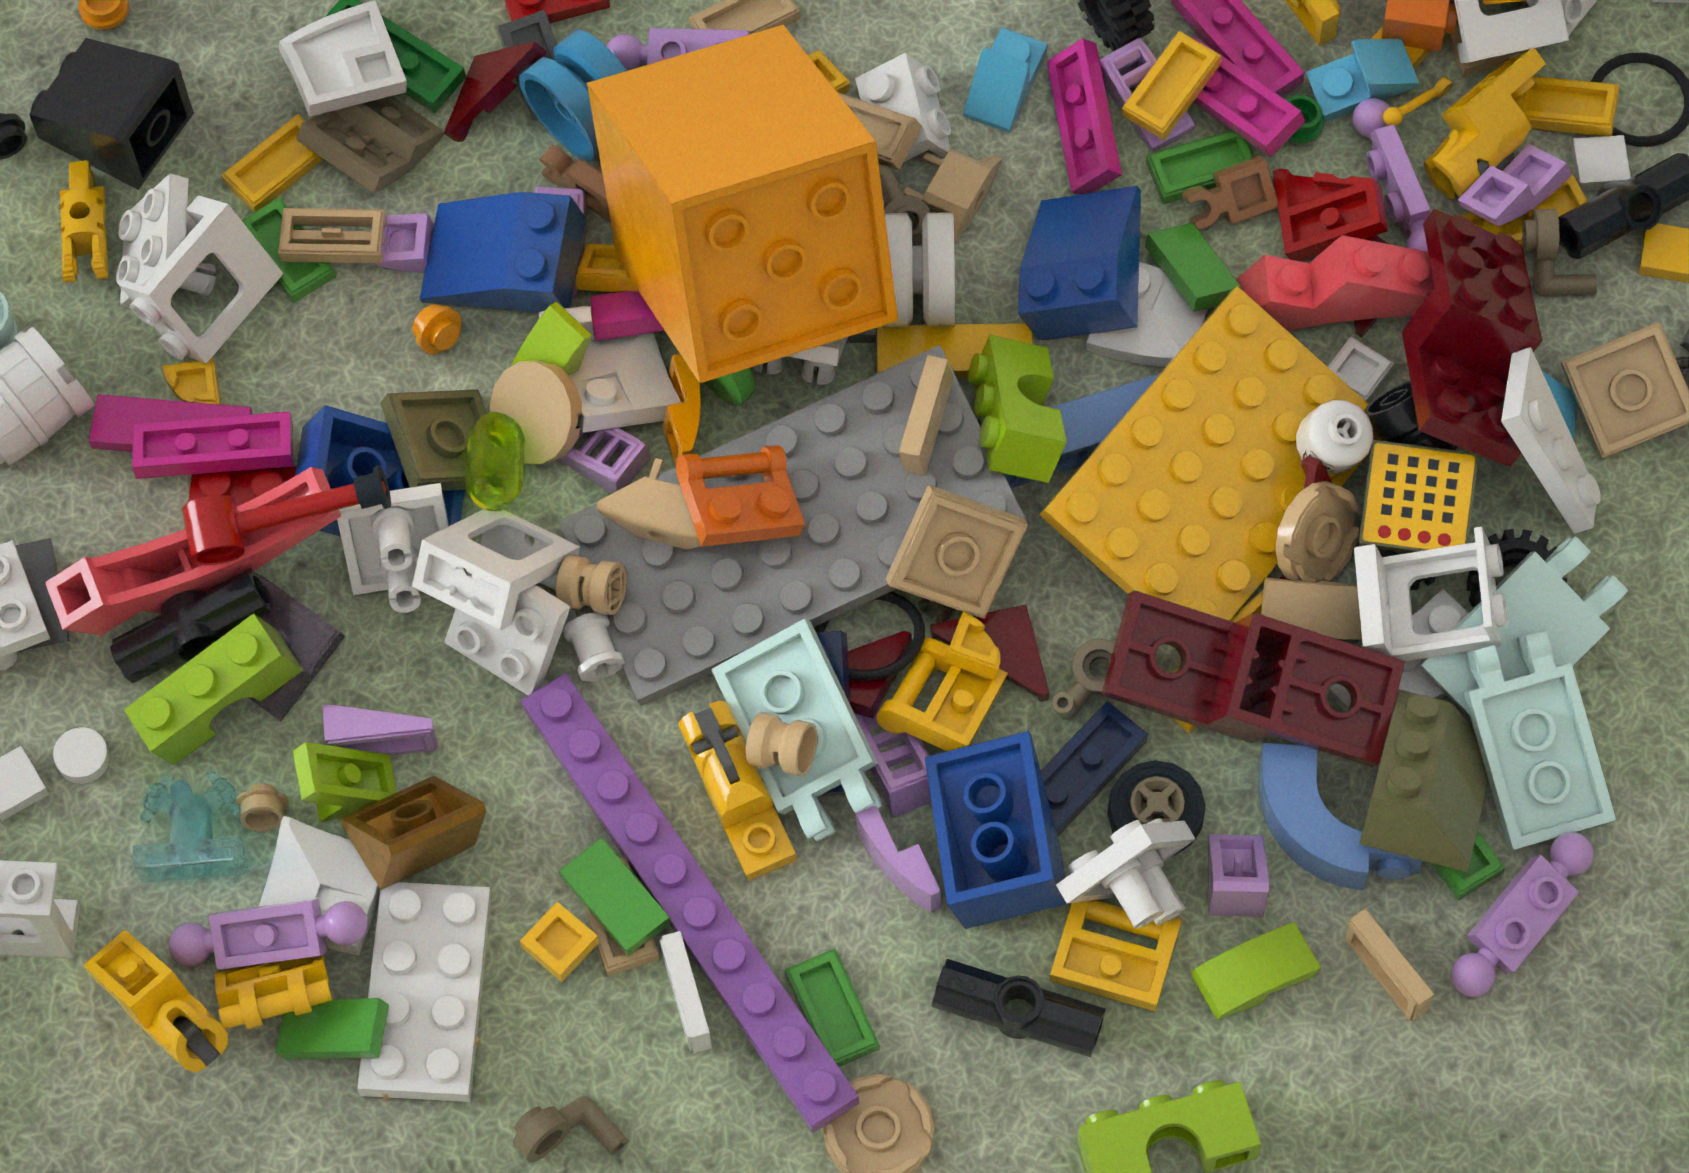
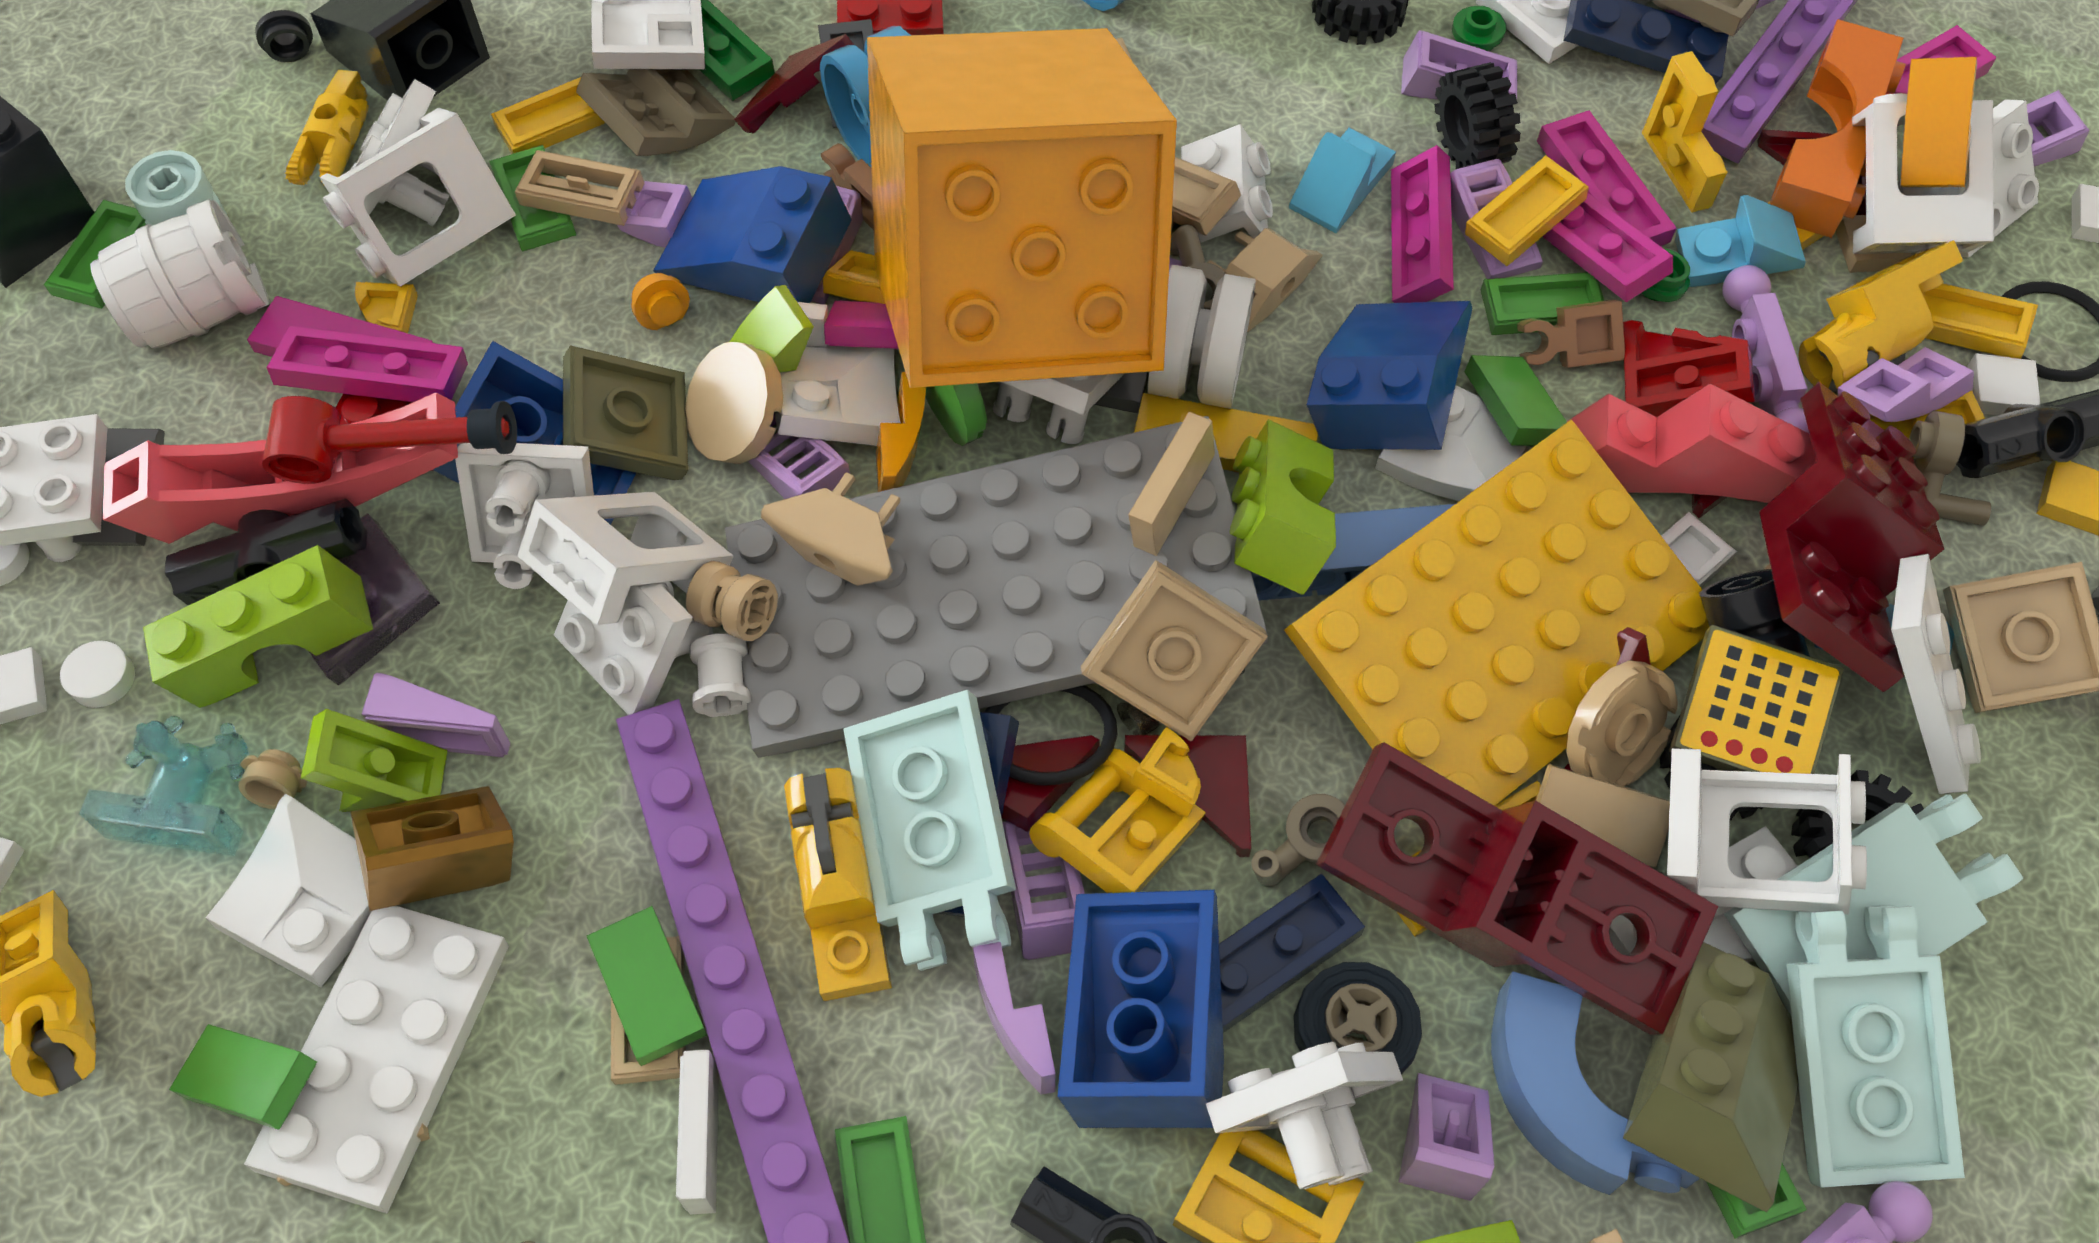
camera: 10 degrees right, 5 degrees down
(268, 934) = (210, 935): lavender plate -> none
(270, 990) = (186, 1007): yellow plate -> none
(495, 473) = (668, 449): clear neon green plate -> none
(559, 941) = (558, 1028): yellow tile -> none
(740, 511) = (925, 548): orange plate -> none
(781, 744) = (896, 837): tan wheel -> none
(1336, 435) = (1668, 608): white head -> none
(1395, 115) = (1778, 284): yellow hinge -> none

